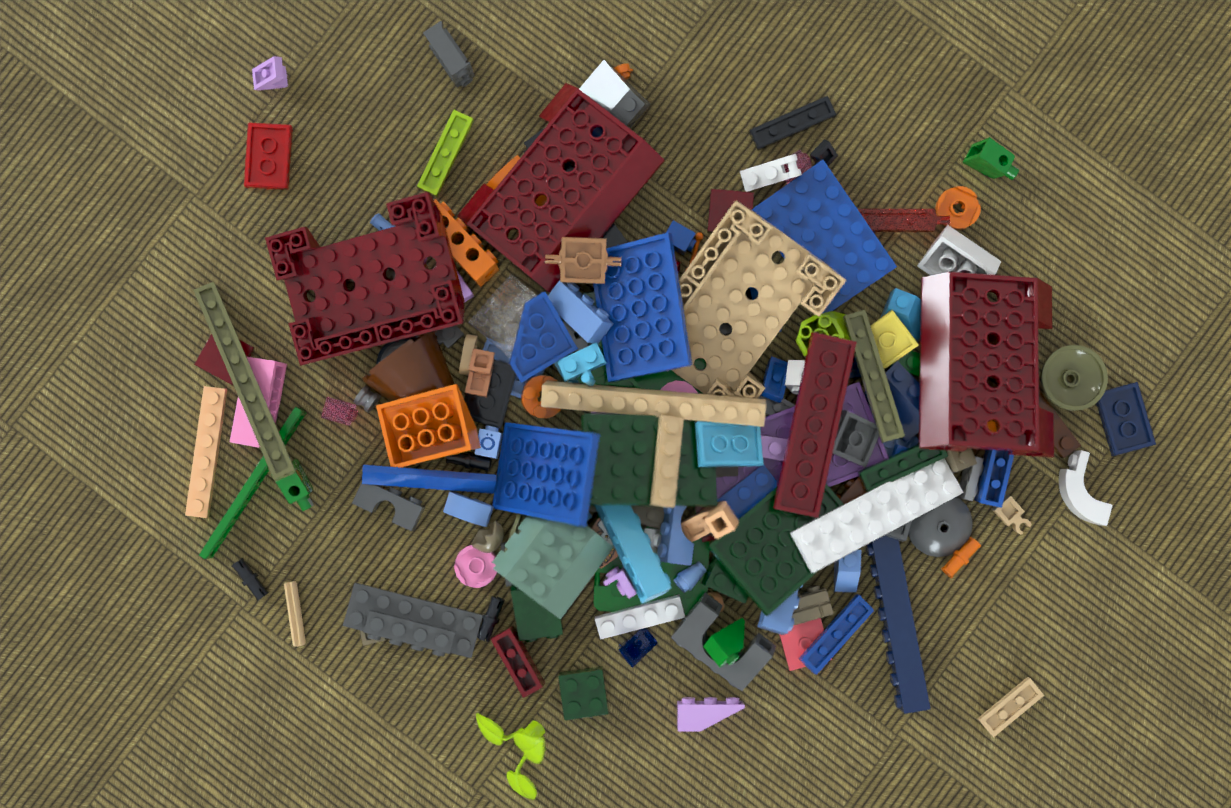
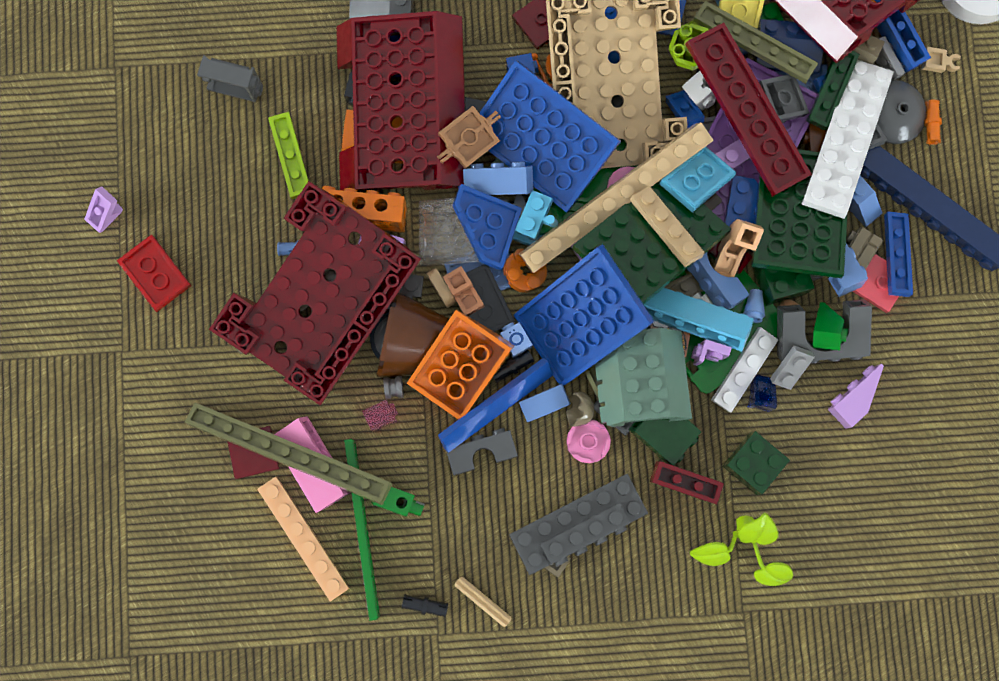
camera: 45 degrees left, 5 degrees down
(490, 618) = (635, 470): black pin -> none
(674, 647) = (792, 367): none -> light grey plate

